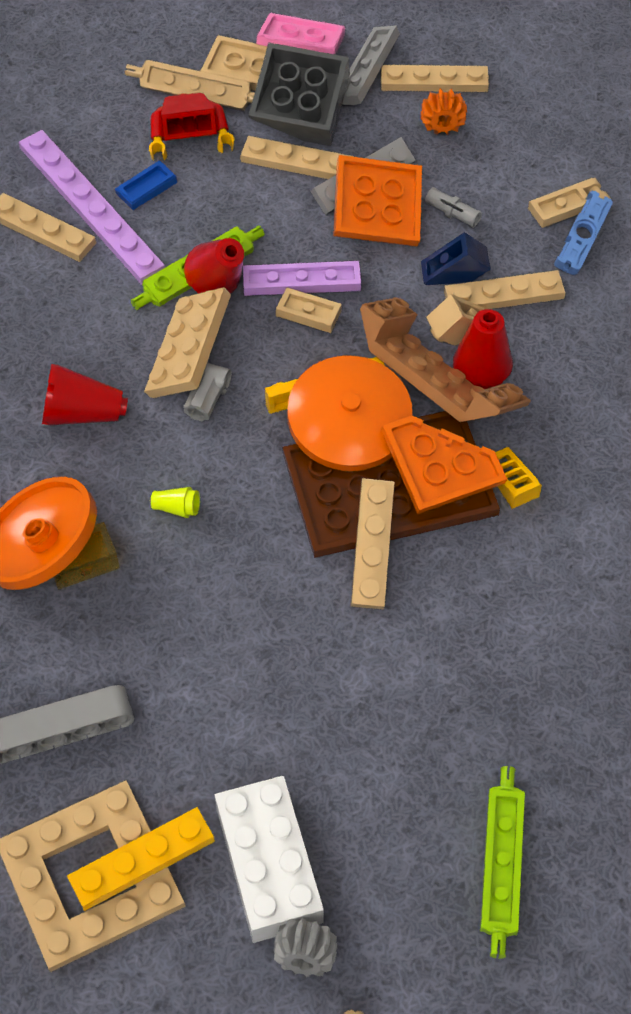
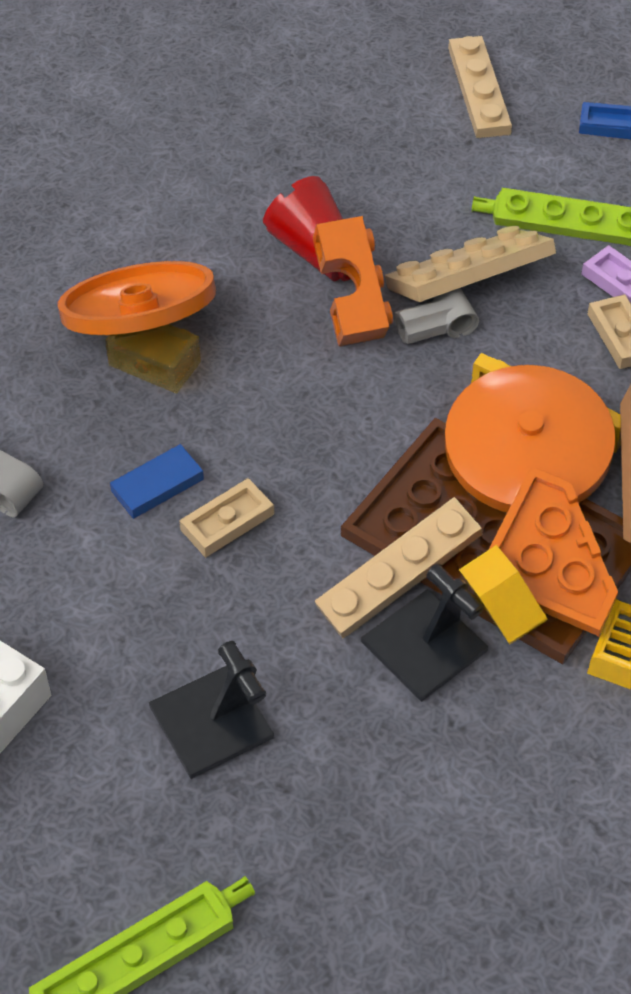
camera: 50 degrees right, 5 degrees down
(91, 206) = (544, 101): lavender plate -> none
(167, 419) = (347, 249): none -> orange arch
(177, 501) = (290, 384): neon yellow cone -> none
(181, 625) = (156, 481): none -> blue tile
(214, 265) = (577, 223): red cone -> none
(248, 606) = (226, 517): none -> tan plate
(382, 712) = (215, 714): none -> black plate
(428, 567) = (426, 639): none -> black plate
(444, 504) = (503, 594): none -> yellow slope

